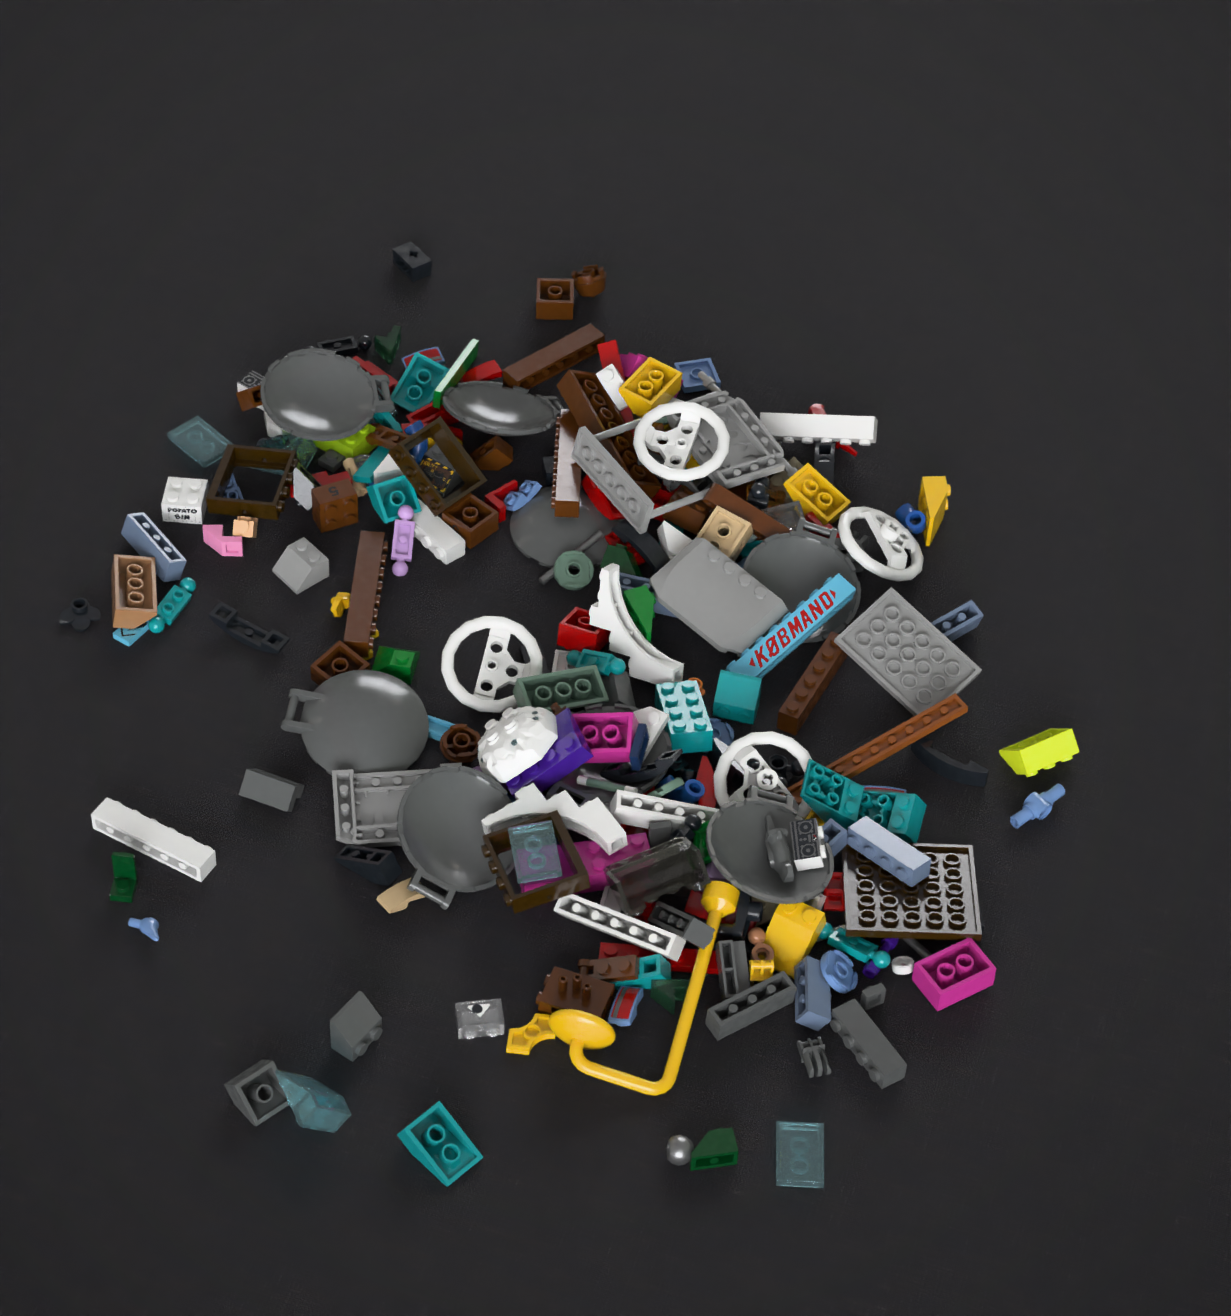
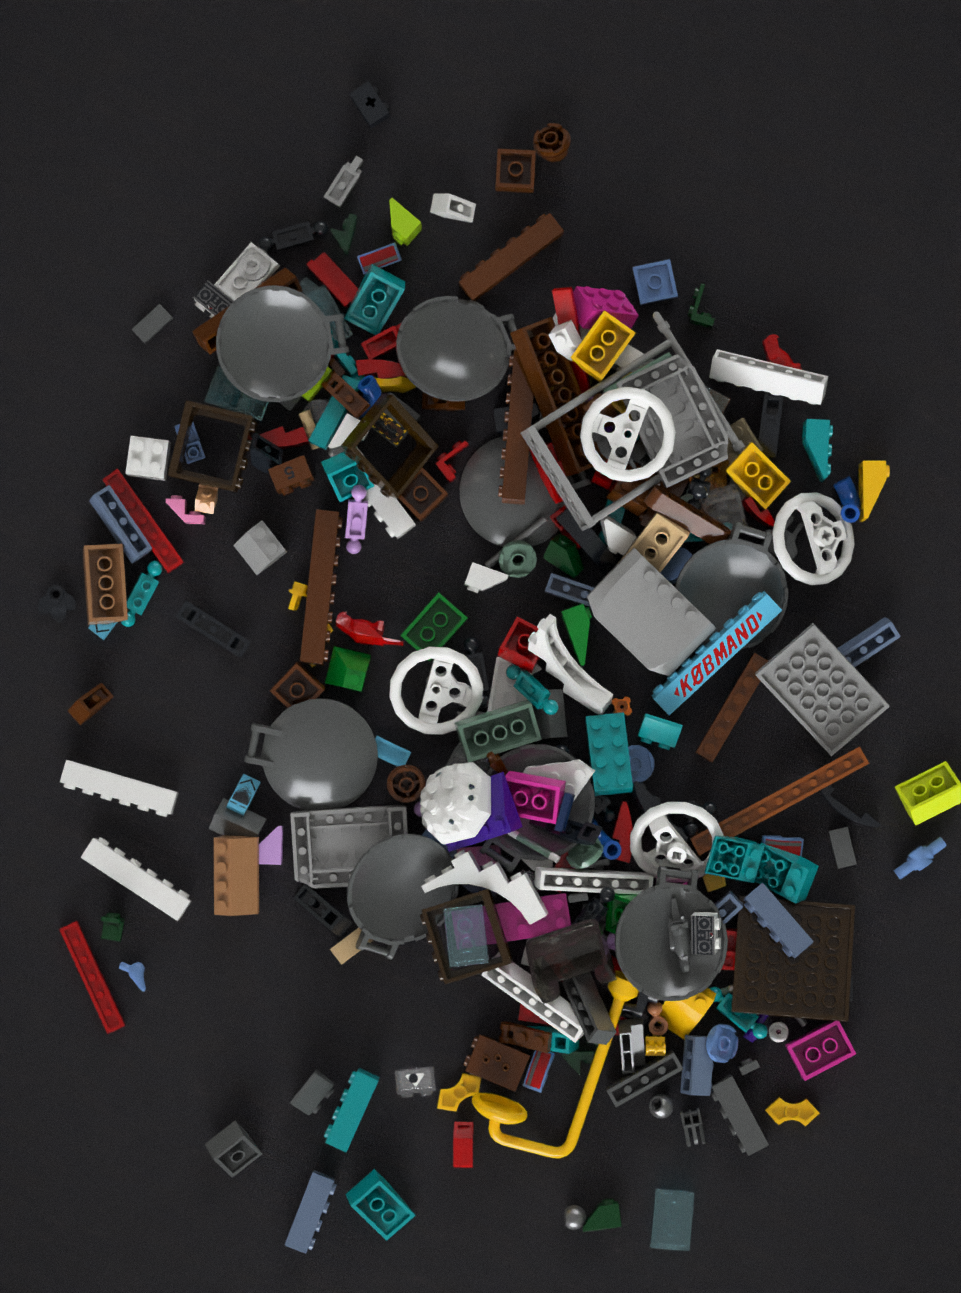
camera: 10 degrees right, 40 degrees up
(96, 935) = (92, 977): none -> red tile
(109, 691) = (90, 703): none -> reddish brown slope
(138, 760) = (119, 787): none -> white brick
(195, 566) = (160, 544): none -> red plate
(197, 407) = (152, 323): none -> dark grey tile
(199, 441) = (160, 369): clear light blue tile -> none
(269, 826) = (236, 875): none -> medium nougat slope
(278, 763) = (243, 794): none -> medium azure tile
(308, 810) = (272, 848): none -> lavender slope
(313, 1102) = (276, 1164): clear light blue slope -> none
(352, 1154) = (309, 1212): none -> sand blue brick
(387, 312) = (344, 182): none -> light grey hinge
(403, 1041) = (352, 1110): none -> teal brick
(414, 629) = (364, 631): none -> red animal
(448, 330) = (403, 223): none -> lime slope
(456, 372) = (411, 288): green tile -> none
(483, 372) = (436, 279): red slope -> none
(488, 604) = (434, 625): none -> green brick
(494, 325) = (452, 207): none -> white slope
(518, 499) = (470, 458): medium blue slope -> none
(539, 1081) = (463, 1144): none -> red slope
(540, 586) = (483, 578): none -> white slope
(750, 397) = (702, 319): none -> dark green bracket
(774, 1035) = (661, 1106): none -> flat silver piece
(873, 477) = (816, 443): none -> teal slope
(920, 1043) = (783, 1111): none -> yellow tile
(950, 801) = (842, 847): none -> dark grey tile

